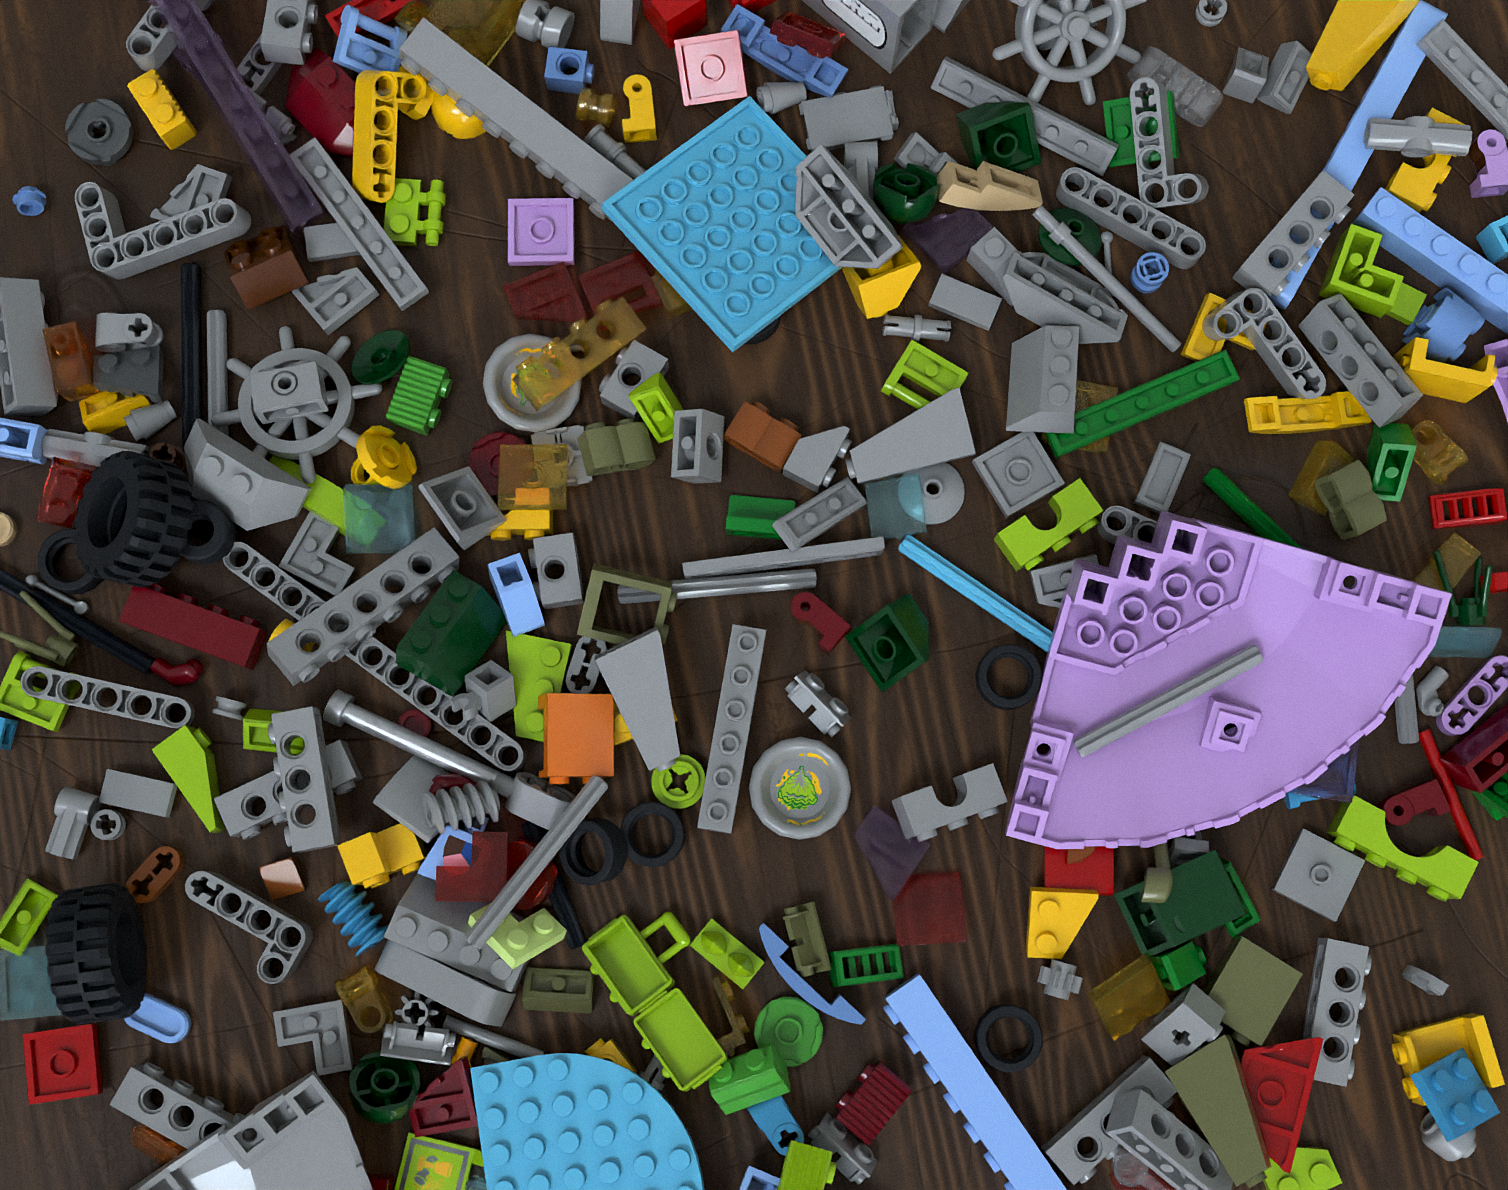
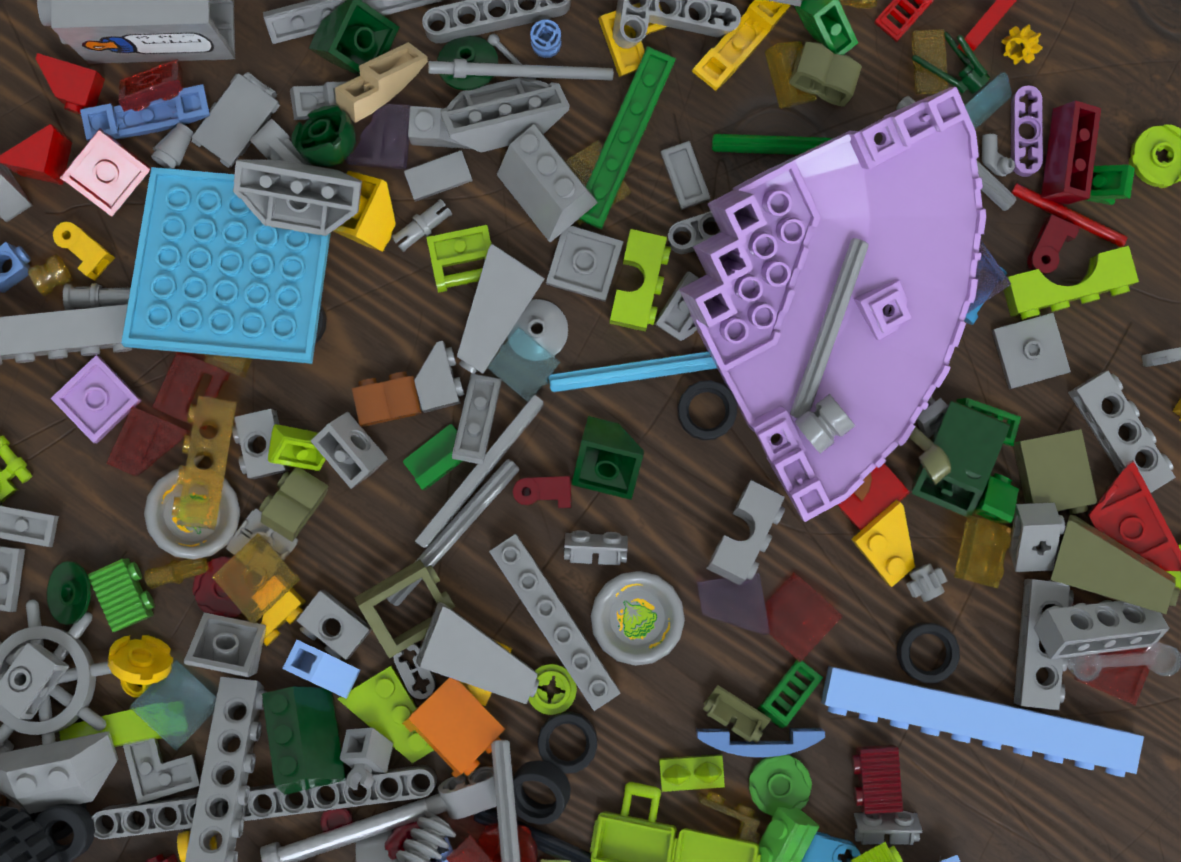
camera: 45 degrees left, 5 degrees up
(475, 416) = (175, 572): none -> clear yellow axle
(1095, 771) = (824, 423): none -> light grey wheel

